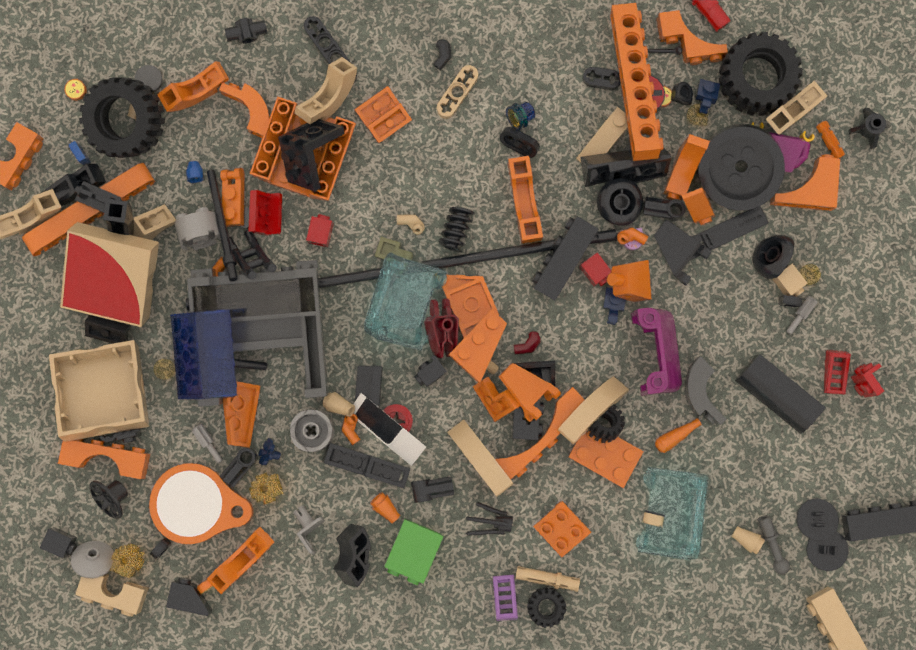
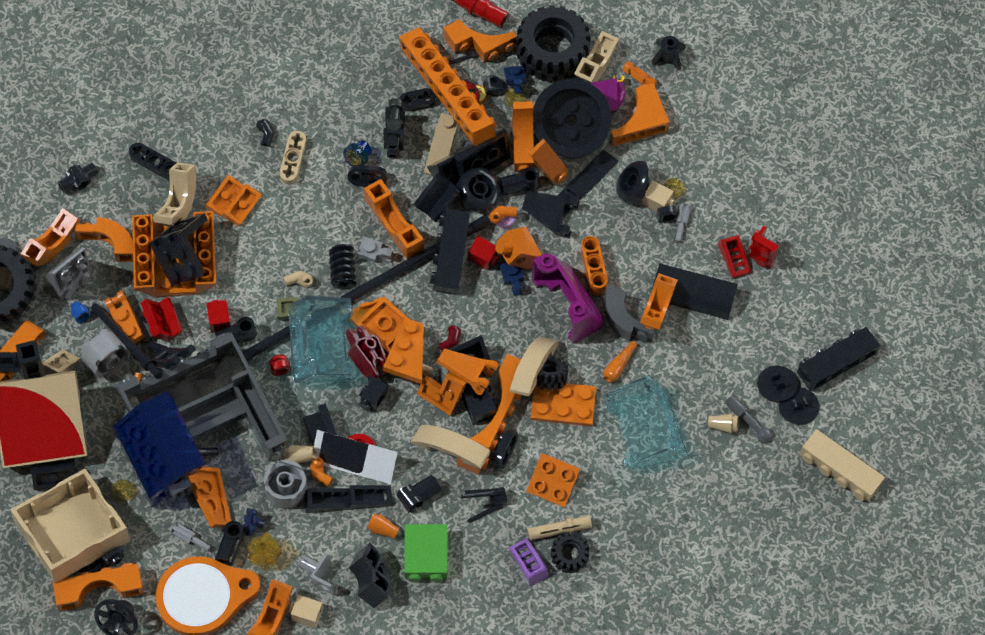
camera: 25 degrees left, 20 degrees down
(195, 132) = (69, 274): none -> light grey slope
(281, 562) = (306, 611): none -> tan brick
(327, 255) = (237, 328): none -> black piece
(356, 308) = (279, 367): none -> red tile
(492, 221) = (373, 249): none -> light grey plate
(522, 484) = (507, 444): none -> black plate
(562, 111) = (394, 131): none -> hips
(576, 195) = (436, 197): none -> black panel
(653, 518) = (631, 439): tan piece -> none
(702, 319) = (594, 257): none -> orange beam
(739, 397) = (658, 302): none -> orange arch

